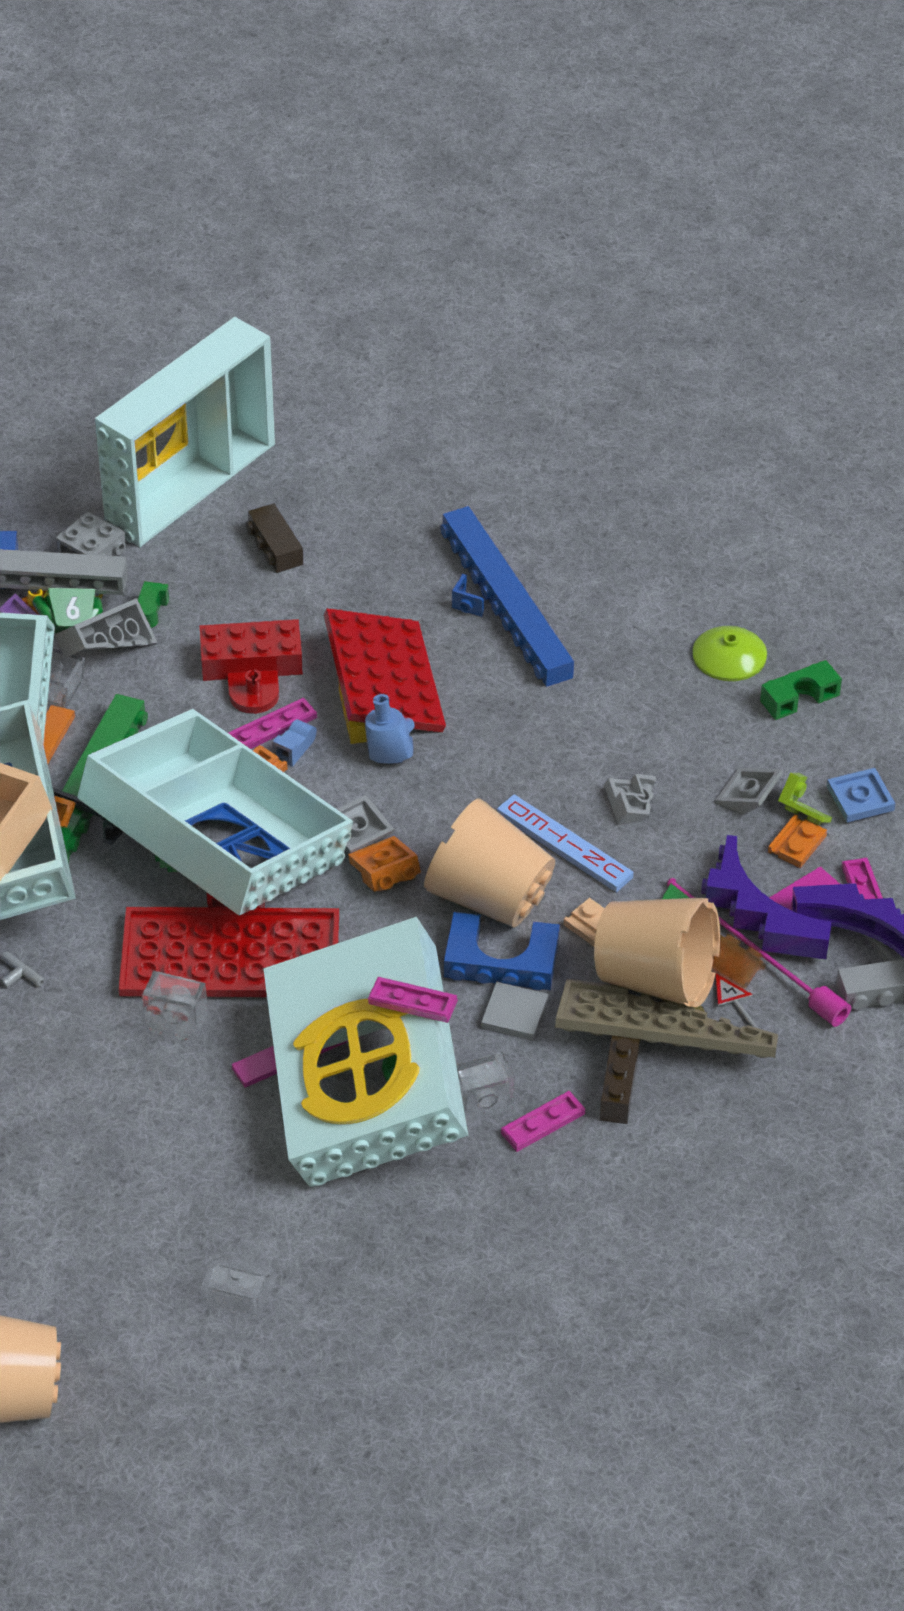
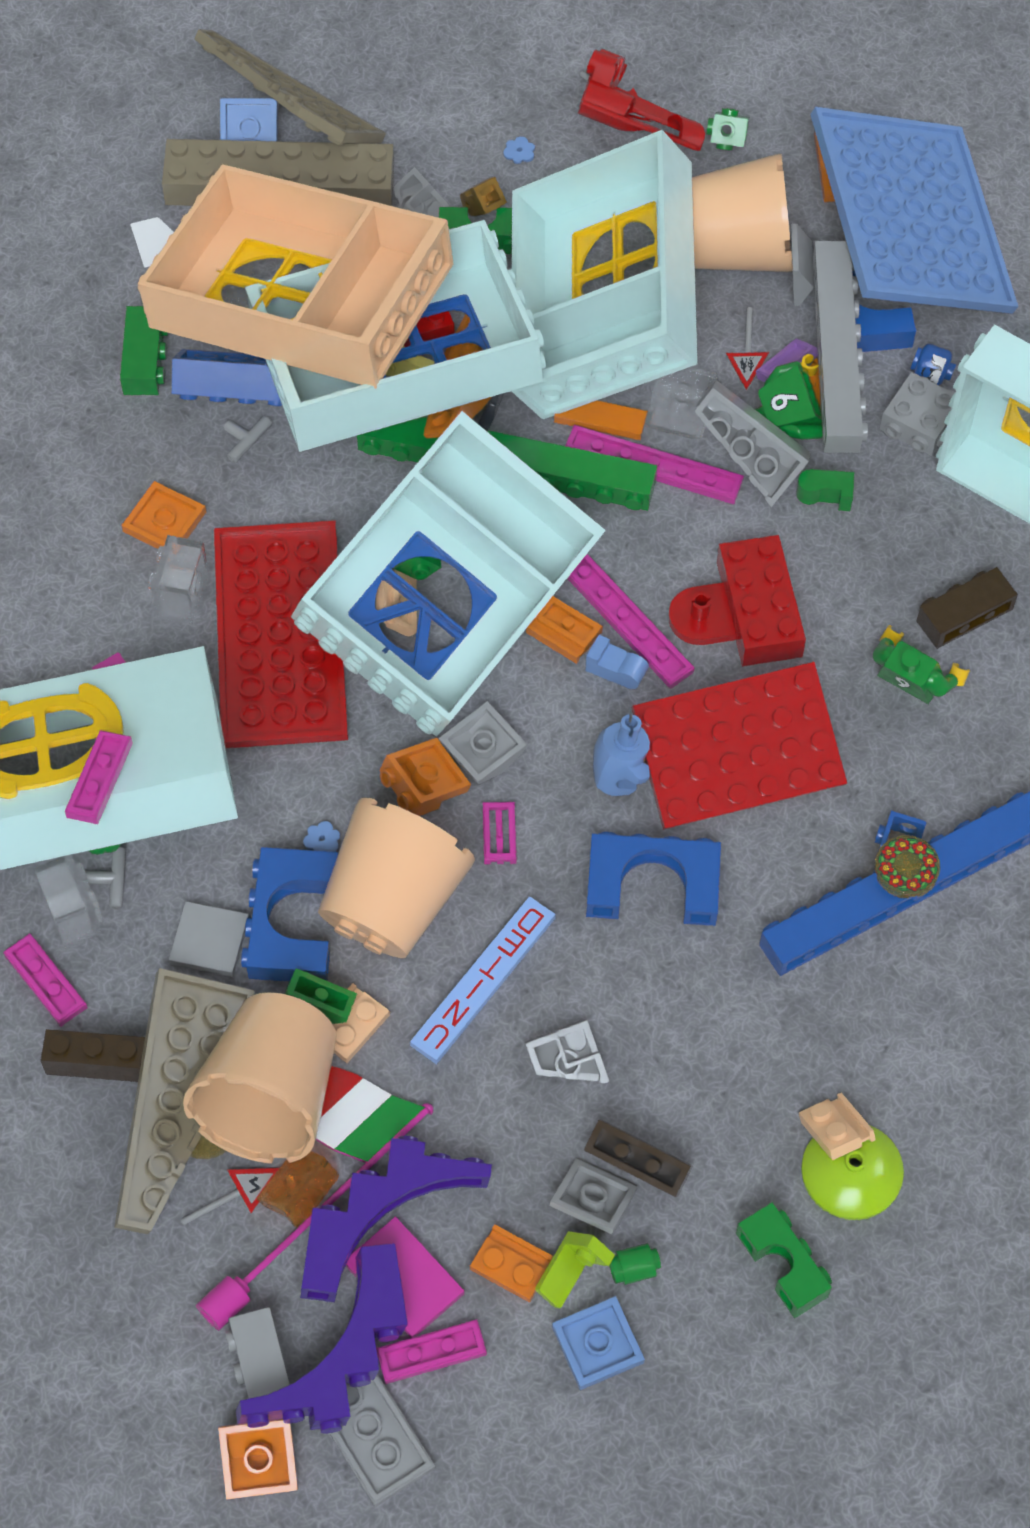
camera: 85 degrees right, 15 degrees up
(46, 529) = (933, 363): none -> blue head
(99, 1027) = (163, 514): none -> orange plate
(120, 682) = (670, 468): none -> dark pink tile
(327, 571) = (914, 670): none -> green torso
(435, 829) = (499, 857): none -> dark pink tile
(435, 932) = (322, 831): none -> medium blue plant
(483, 708) = (692, 860): none -> blue arch
(502, 583) = (907, 866): none -> tile
(579, 937) = (327, 997): none -> green slope
(701, 649) = (836, 1126): none -> light nougat plate
(723, 755) = (638, 1158): none -> dark brown brick
(802, 763) = (635, 1264): none -> green brick

